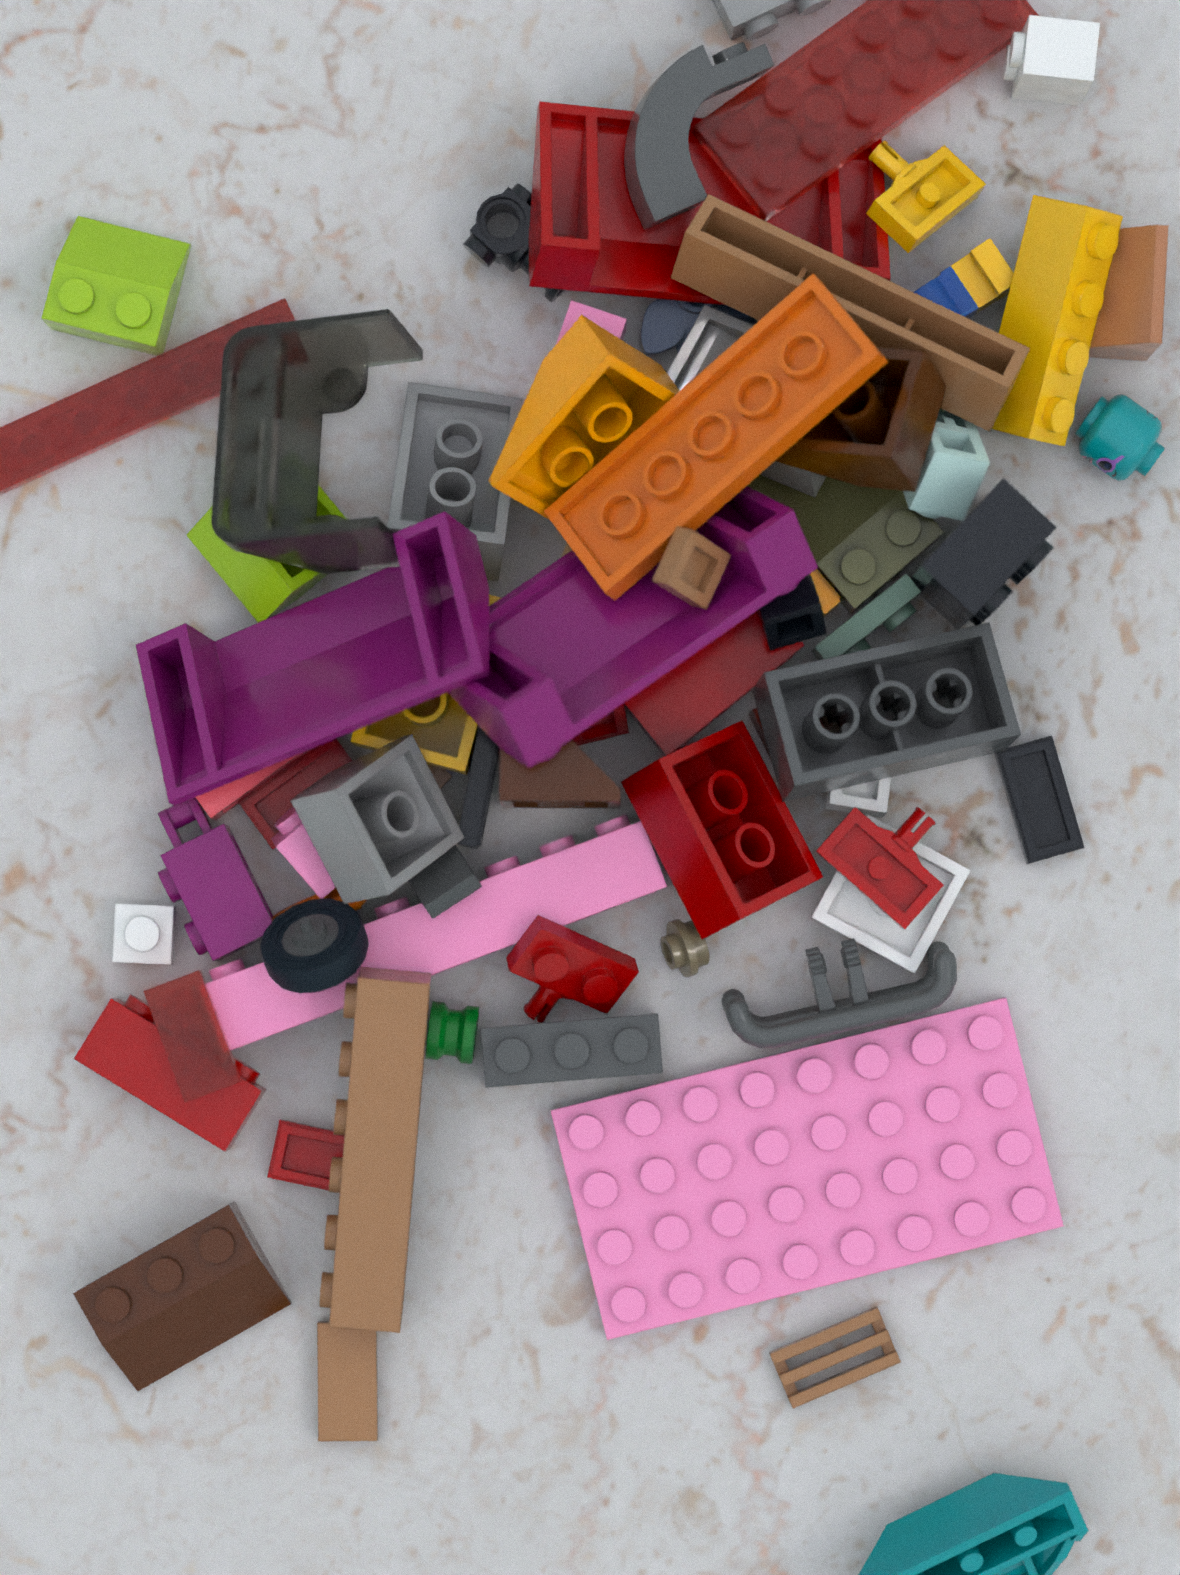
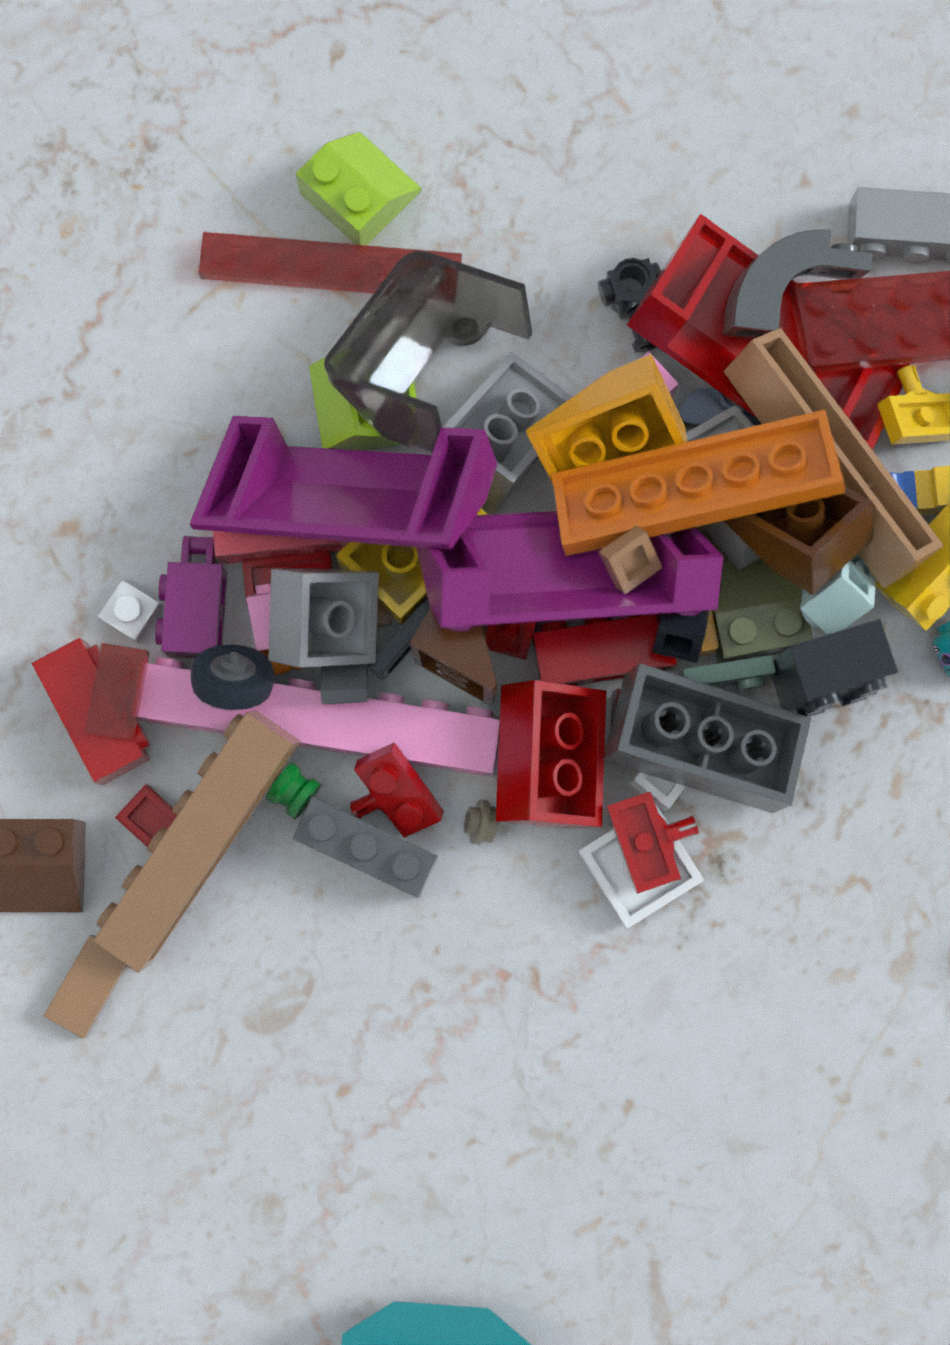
camera: 30 degrees right, 5 degrees down
(806, 1168) = (479, 1021): bright pink plate -> none
(842, 1379) = (463, 1166): medium nougat tile -> none
(849, 1013) = (573, 932): dark grey piece -> none
(1039, 800) = (776, 860): black tile -> none

